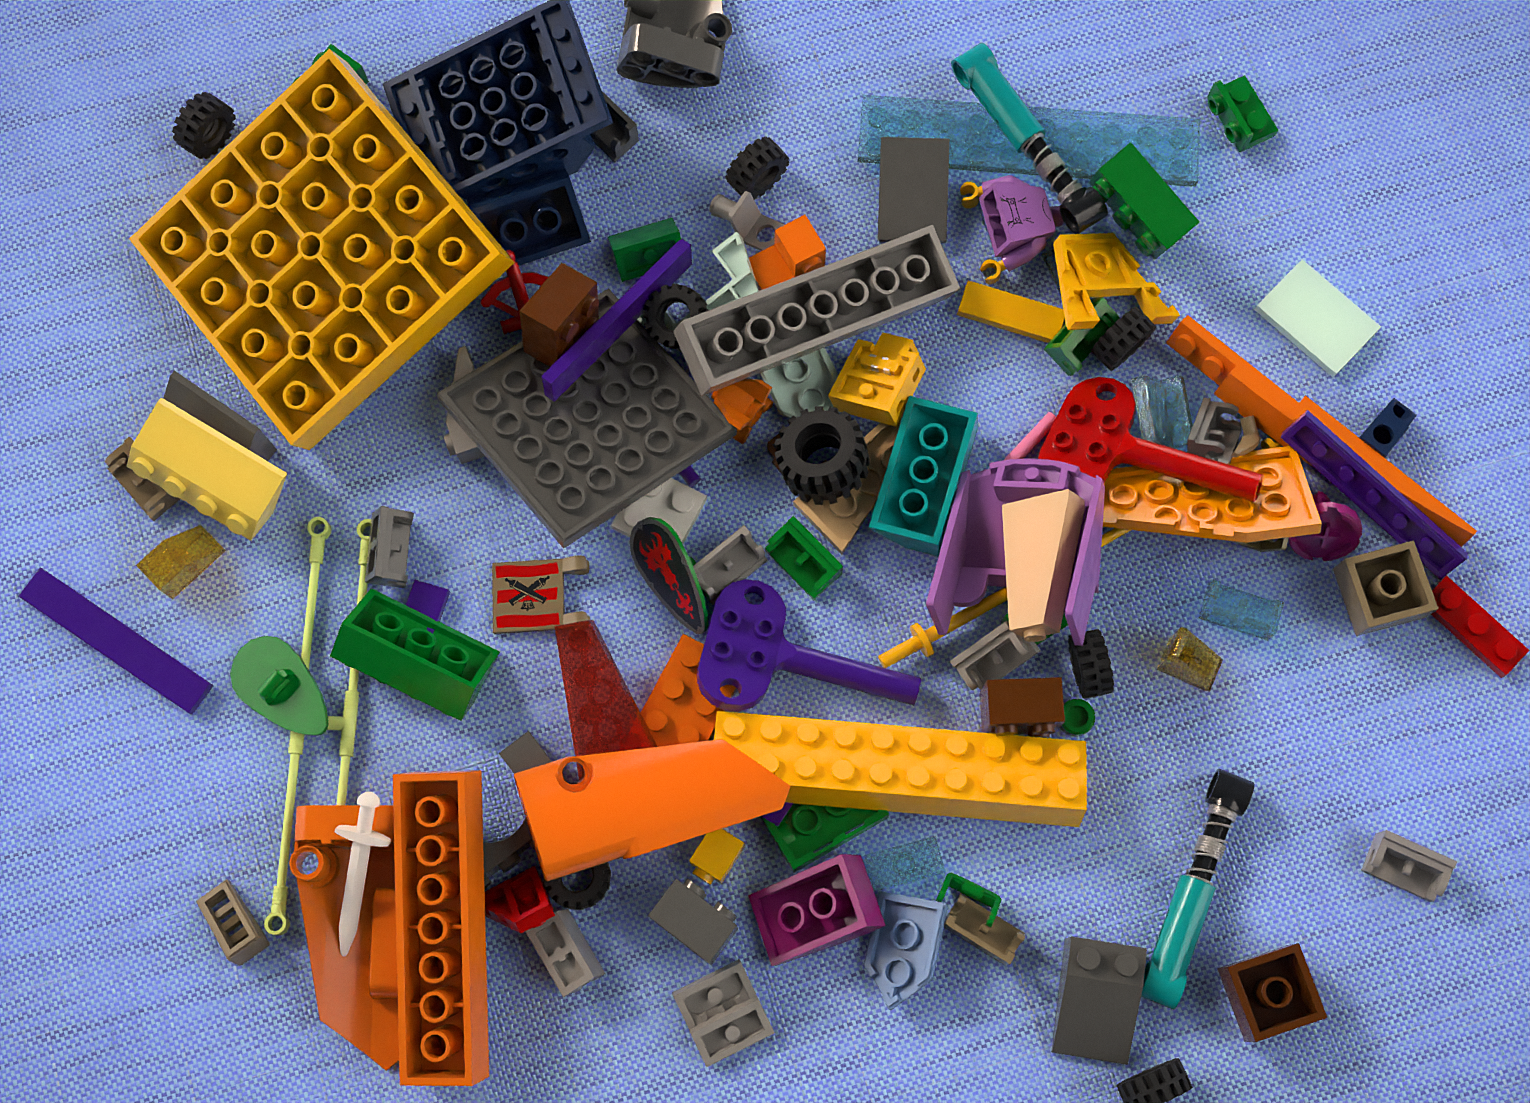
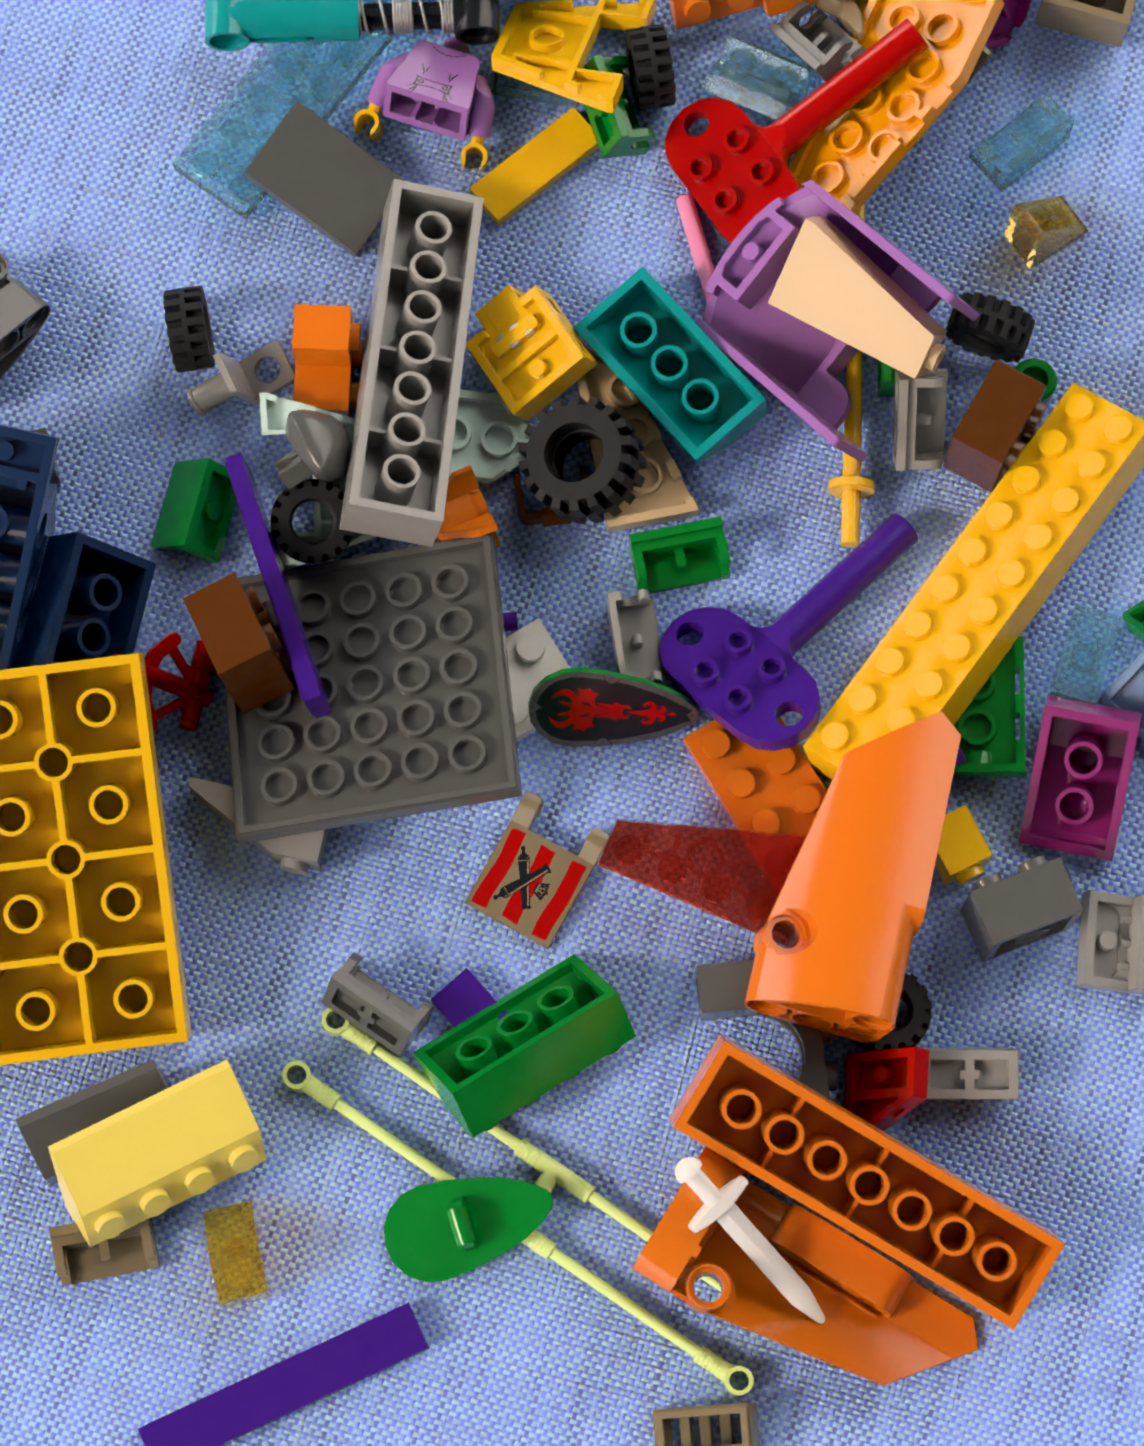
camera: 60 degrees left, 0 degrees up
(719, 284) = (319, 448): none -> dark grey piece

